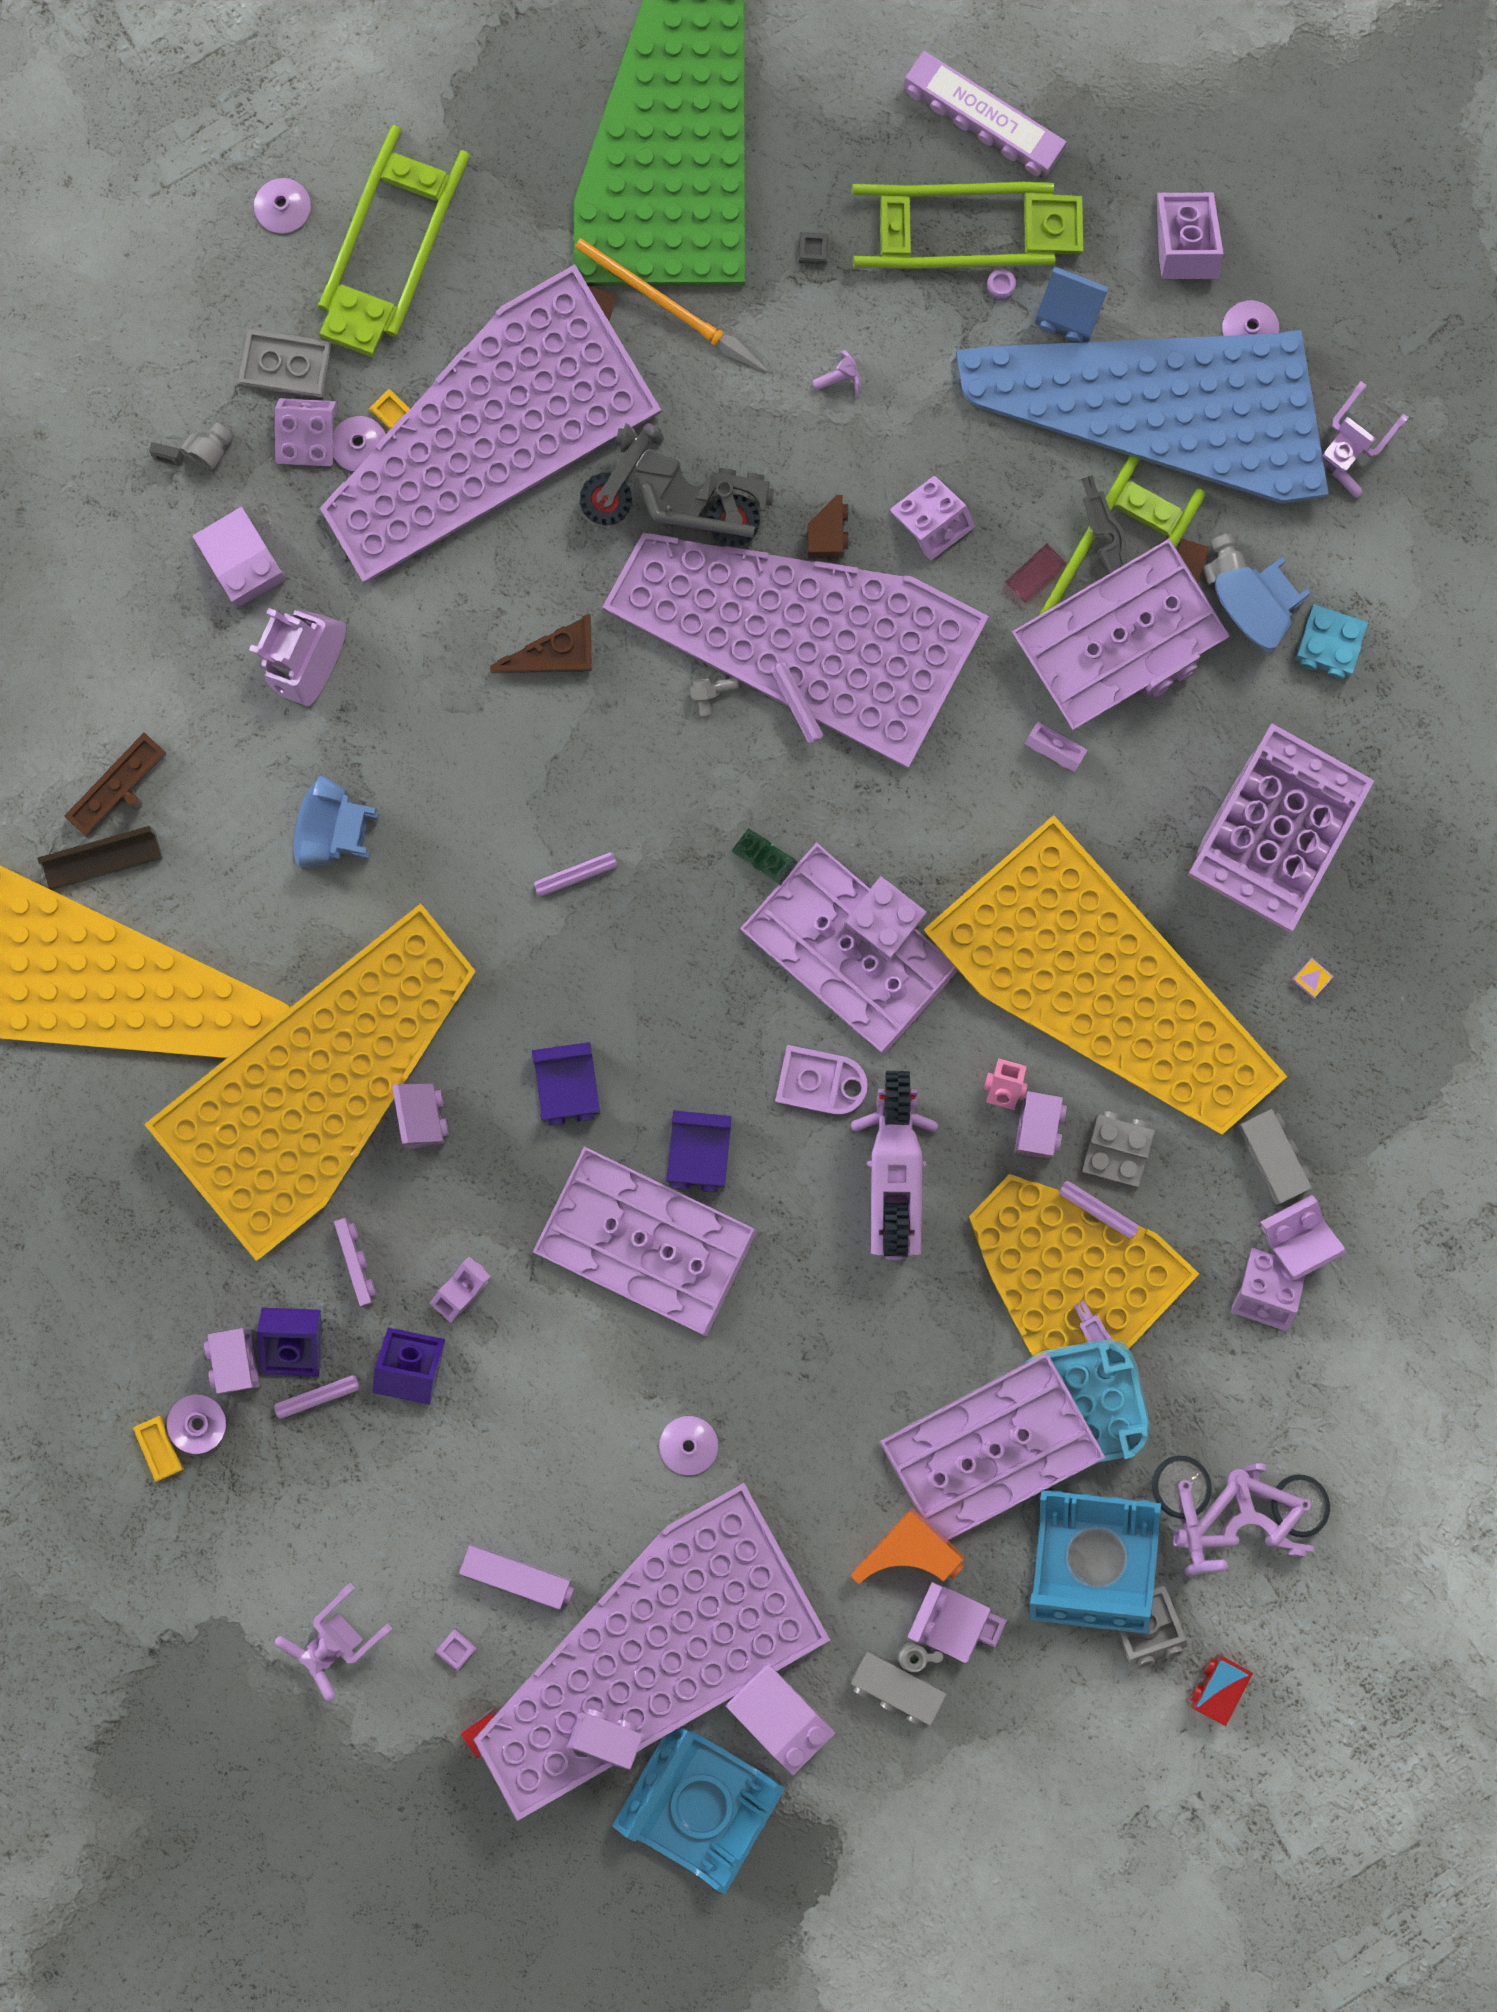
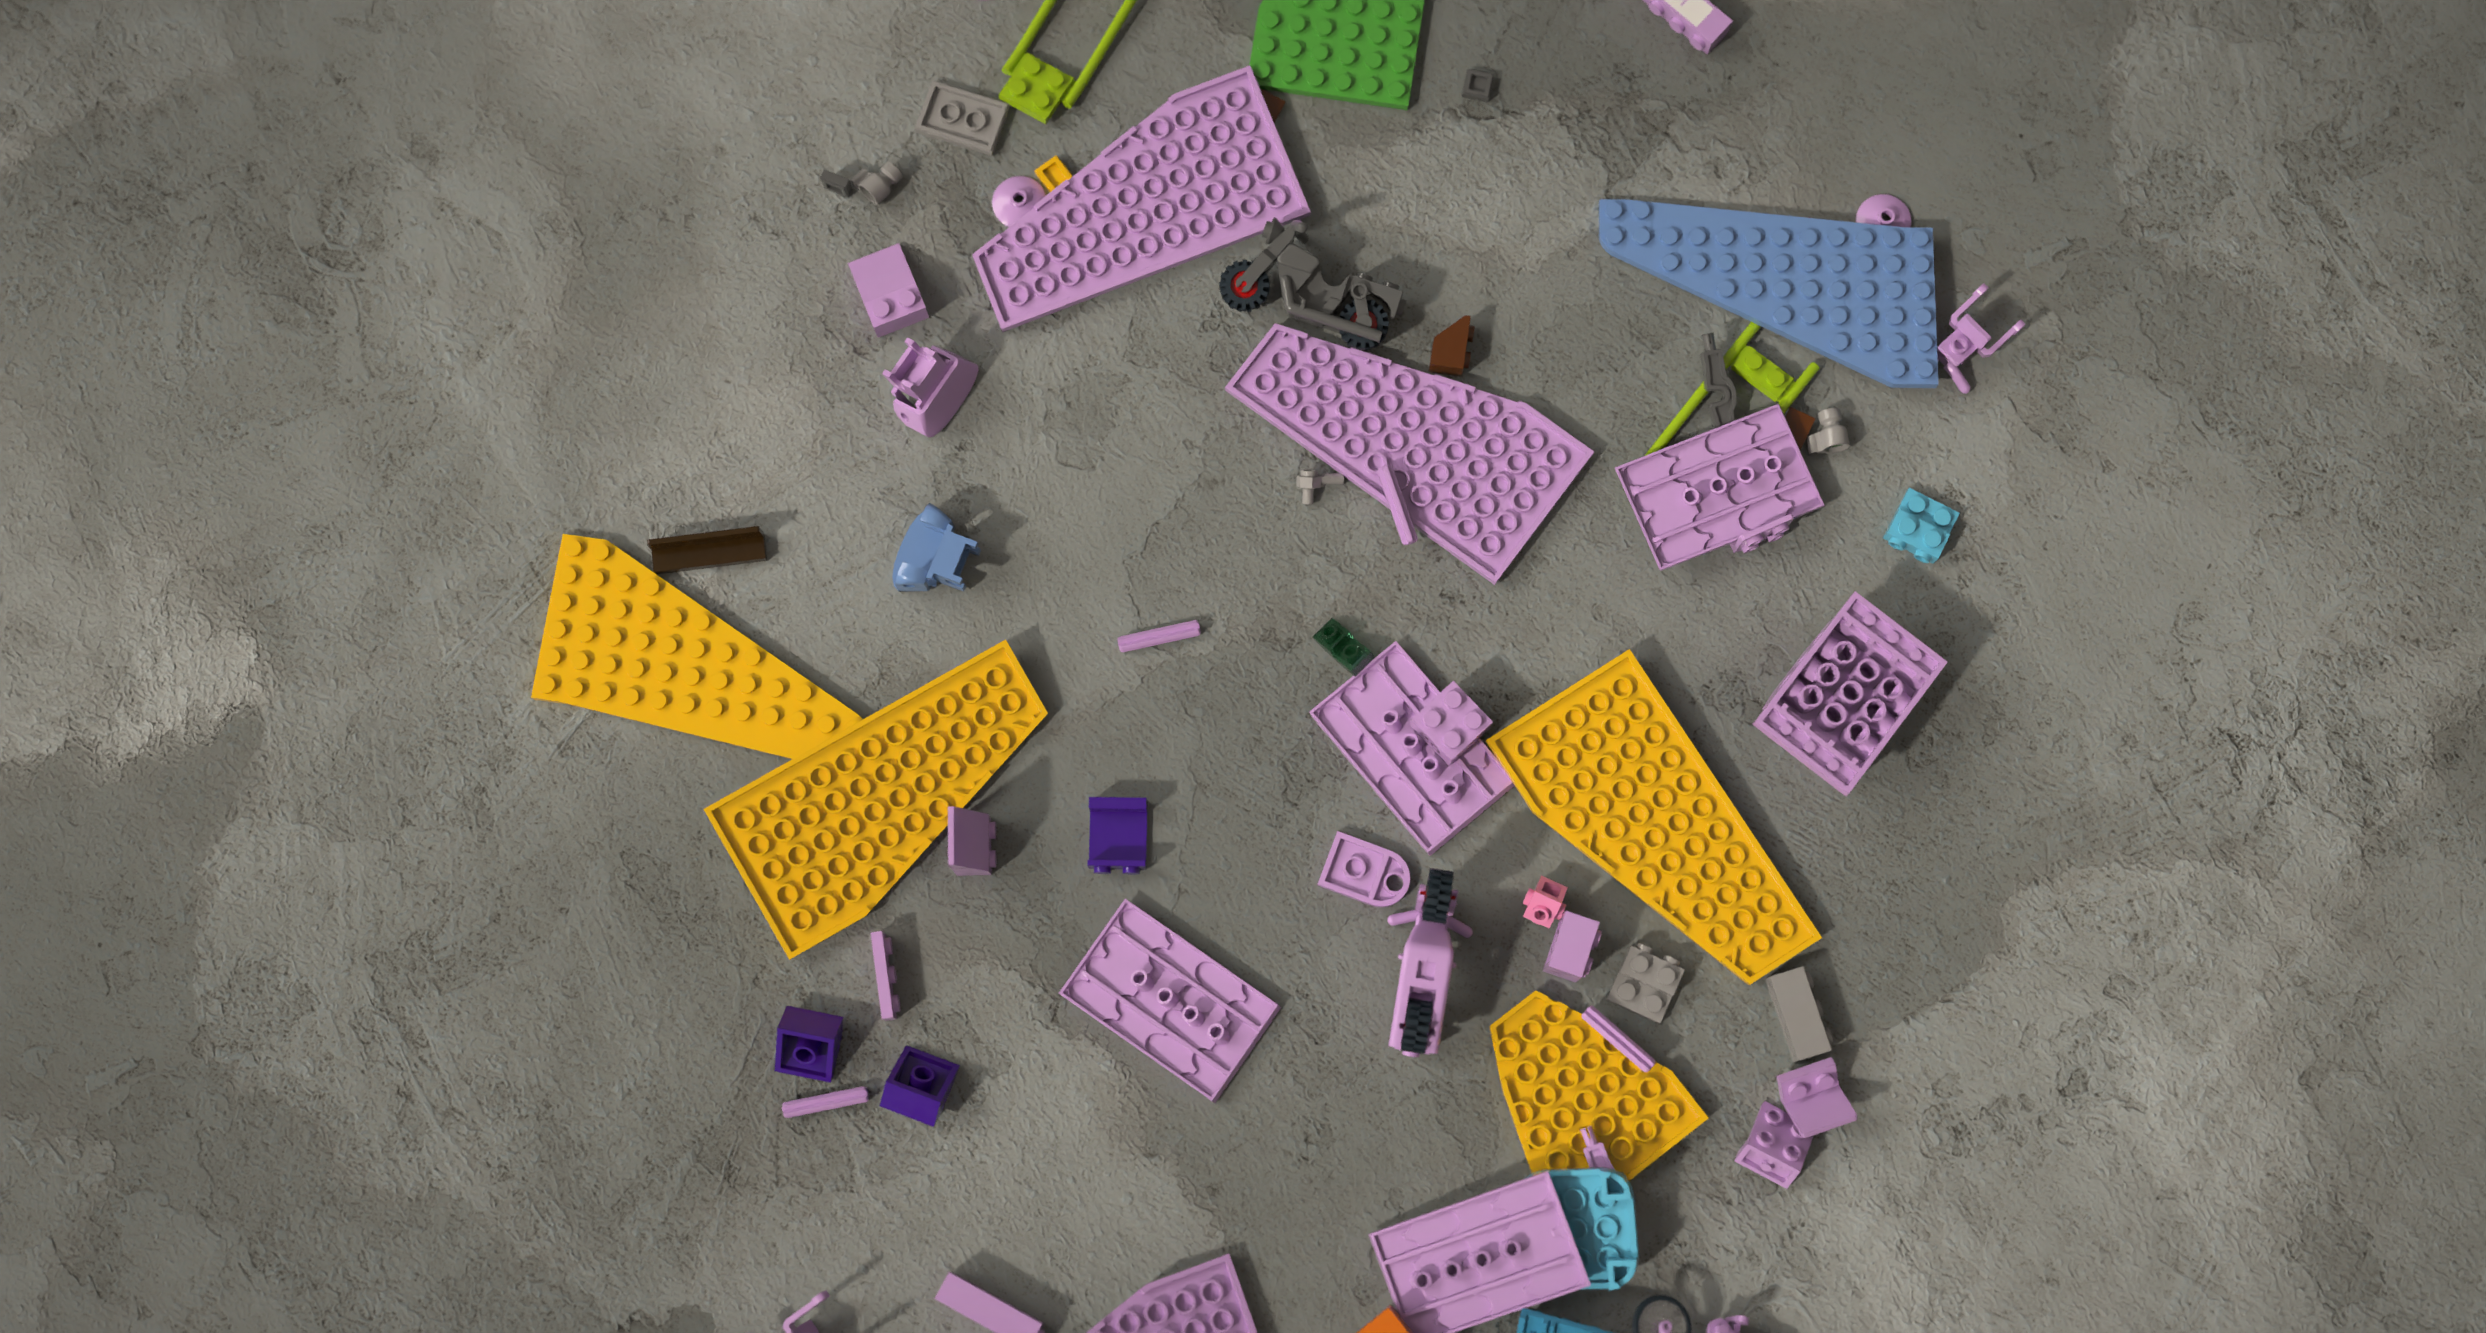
camera: 10 degrees right, 5 degrees down
(116, 785) = (734, 484): reddish brown plate -> none
(158, 1448) = (663, 1128): yellow tile -> none
(181, 1427) = (689, 1106): lavender dish -> none
(232, 1361) = (748, 1053): lavender brick -> none
(304, 432) = (969, 183): lavender bracket -> none
(460, 1289) = (982, 1018): lavender brick -> none
(563, 651) = (1181, 423): reddish brown wing -> none
(699, 1150) = (1236, 920): dark purple panel -> none
(704, 1442) = (1196, 1211): lavender dish -> none
(729, 345) = (1383, 162): light orange piece -> none
(845, 369) = (1493, 201): lavender plant -> none
(934, 517) = (1555, 351): lavender bracket -> none
(1001, 284) = (1651, 144): lavender tile -> none
(1035, 572) = (1645, 418): clear pink tile -> none
(1050, 223) = (1706, 93): lime plate -> none
(1056, 747) = (1640, 585): lavender plate -> none
(1071, 306) = (1715, 171): medium blue slope -> none
(1188, 236) = (1836, 126): lavender slope -> none
(1260, 602) = (1858, 476): medium blue piece -> none
(1312, 978) = (1859, 846): tile -> none

